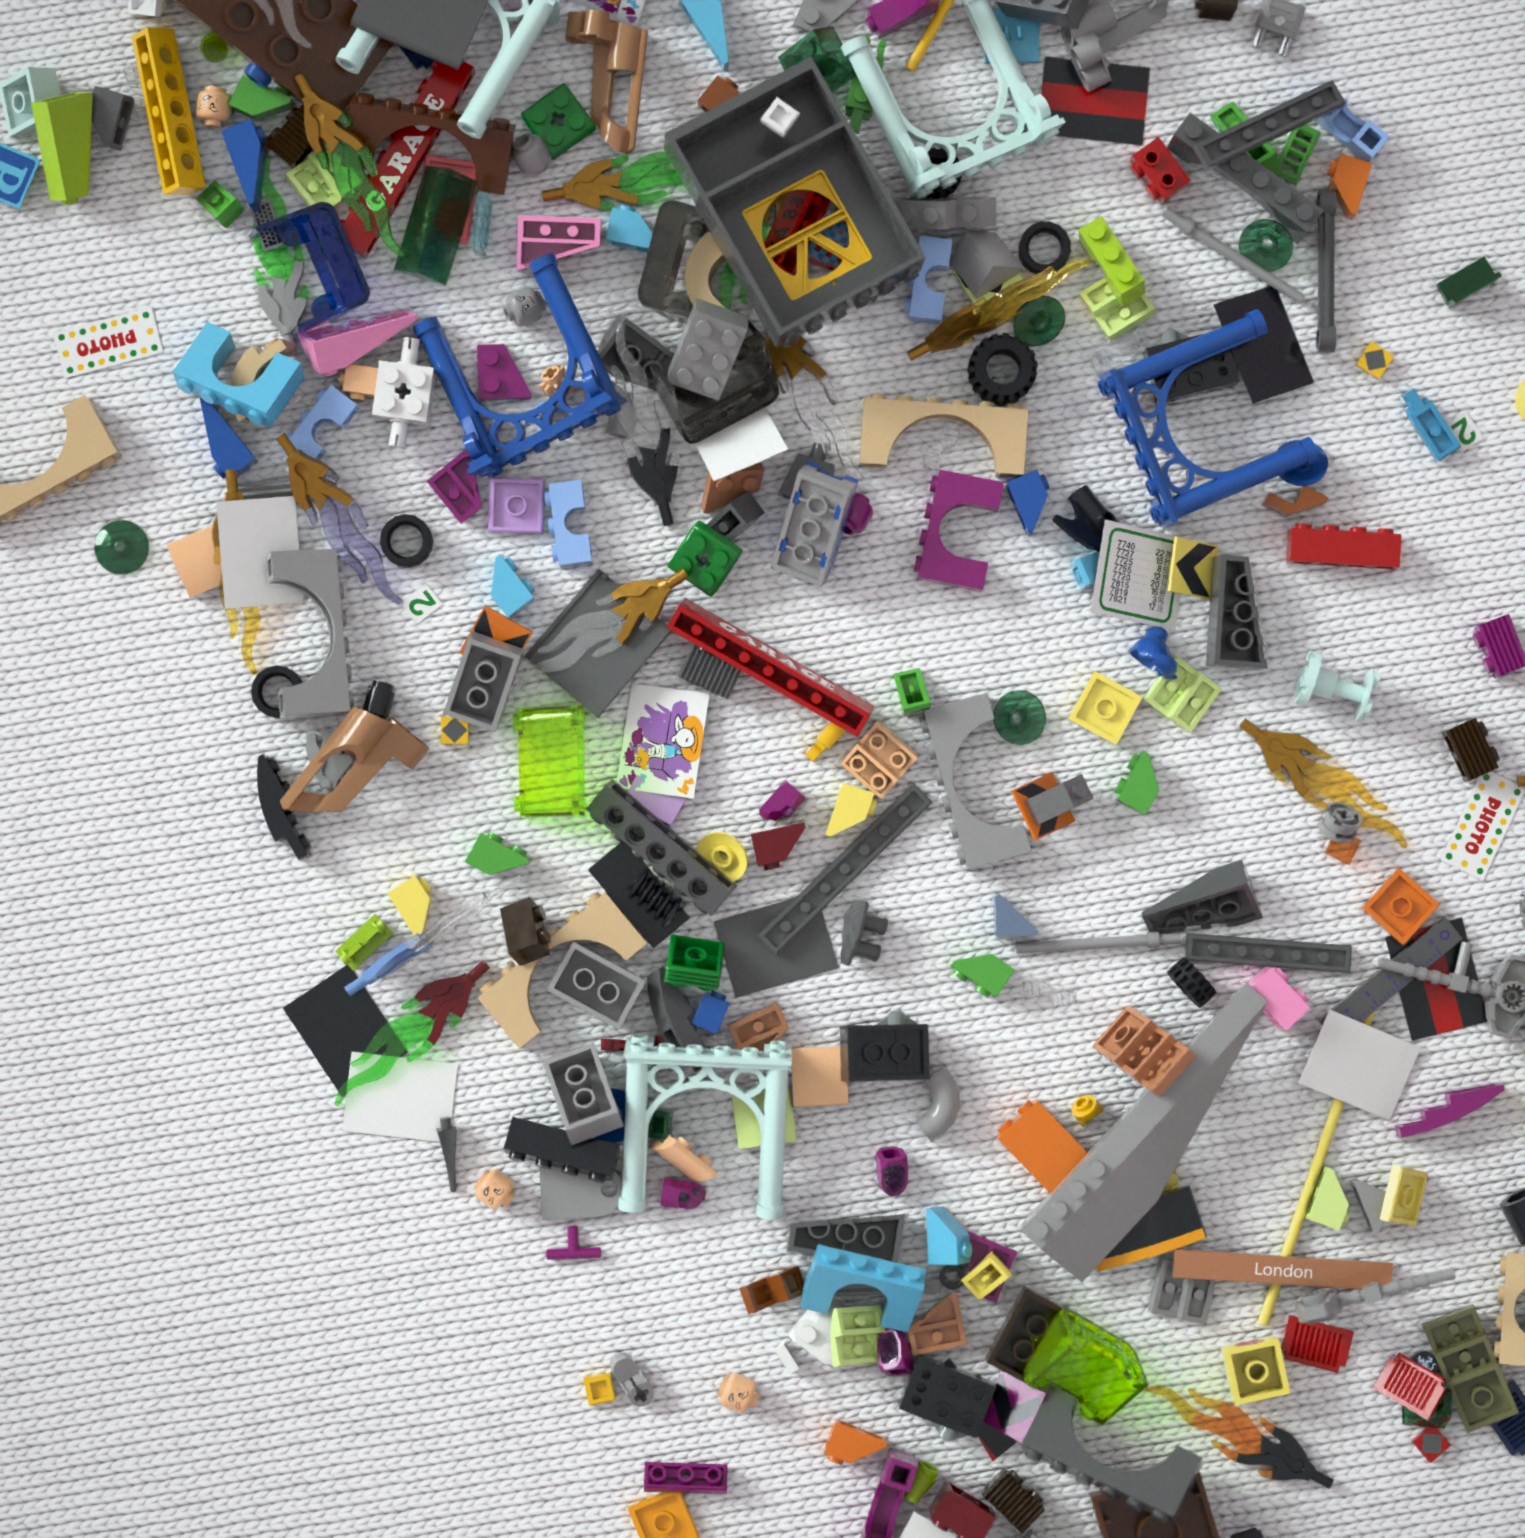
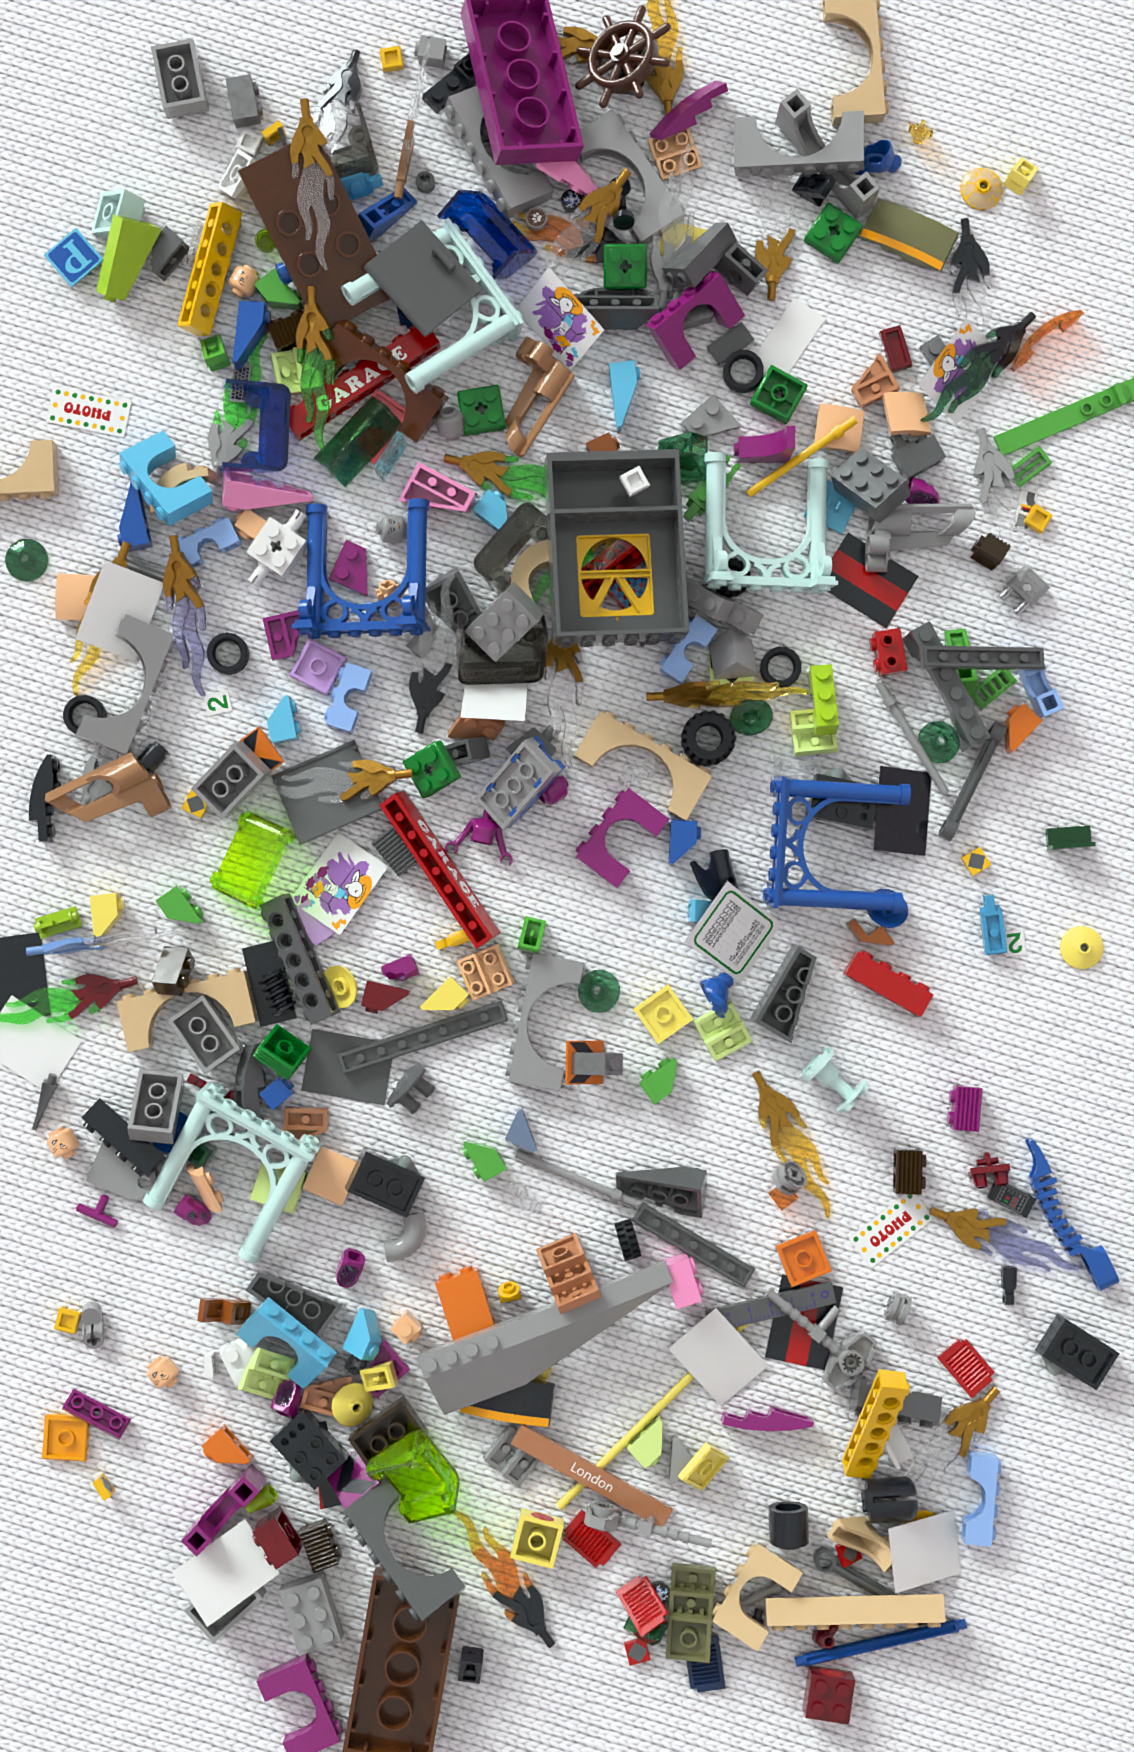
camera: 20 degrees right, 0 degrees up
(799, 603) = (483, 833): none -> magenta piece
(961, 1323) = (345, 1400): none -> light yellow dish
(990, 1205) = (406, 1327): none -> light nougat brick
(1192, 568) = (773, 945): light yellow piece -> none

